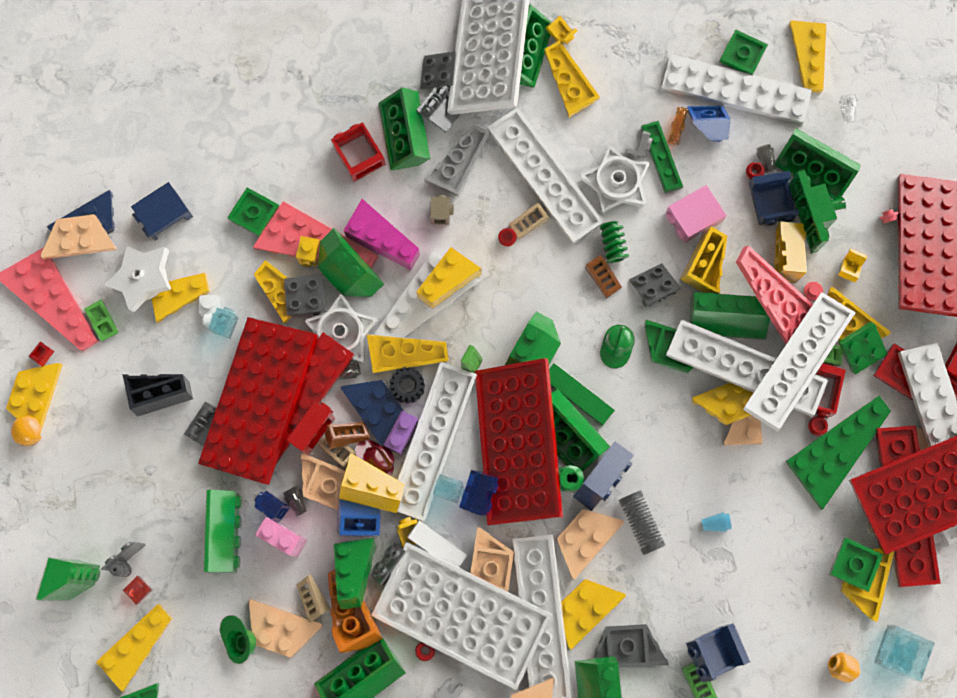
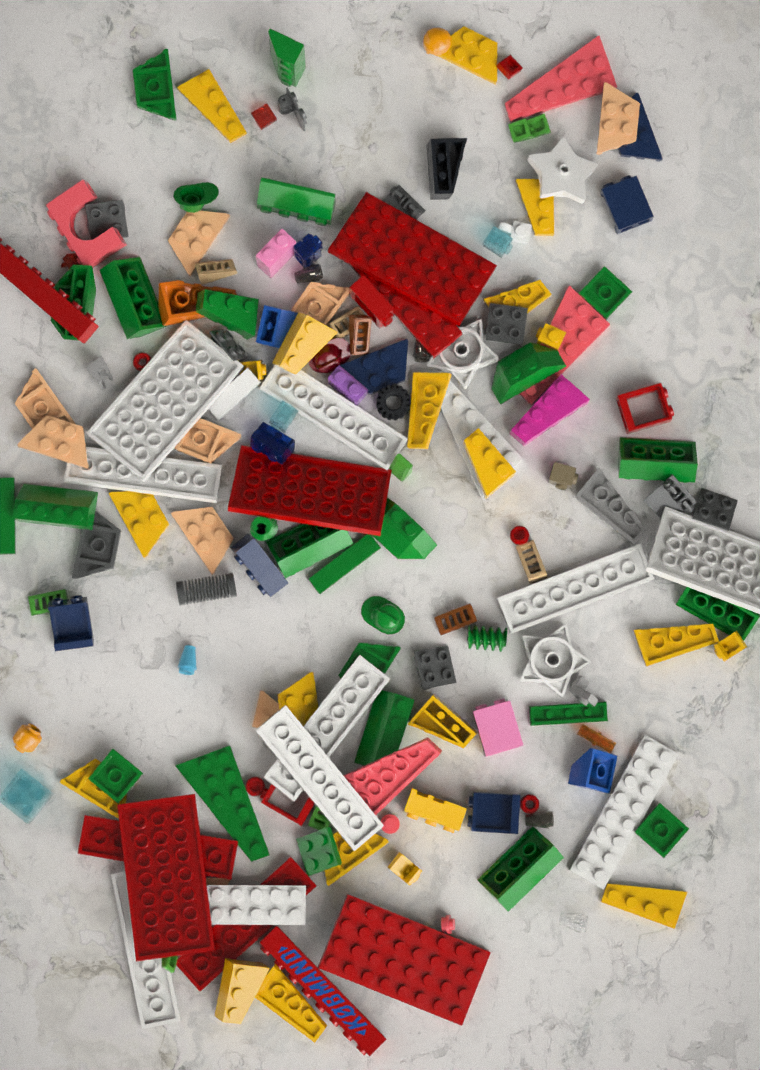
camera: 100 degrees right, 5 degrees up
(815, 209) = (470, 847): green brick -> none

